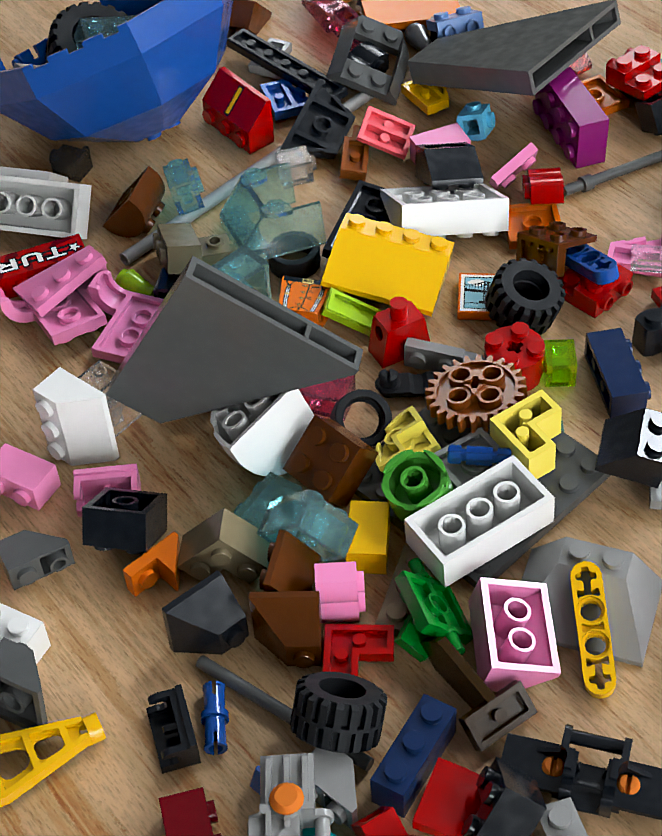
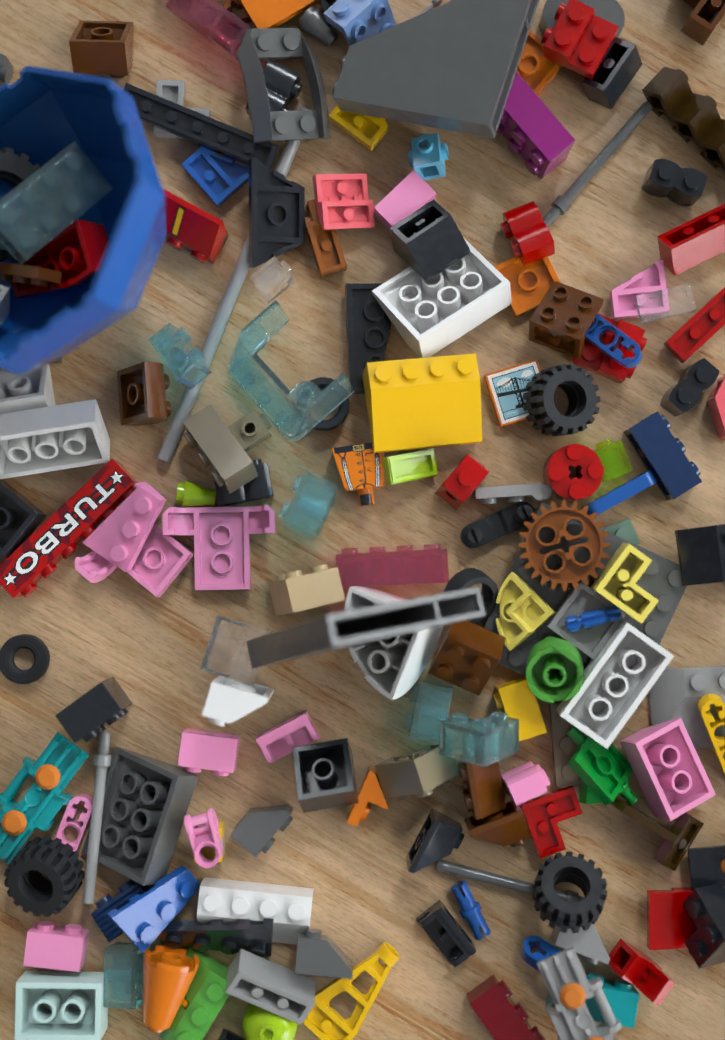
camera: 25 degrees left, 40 degrees up
(413, 755) = (629, 894): dark blue brick -> none
(520, 162) = (490, 214): bright pink wing -> none
(578, 382) = (621, 493): none -> blue beam

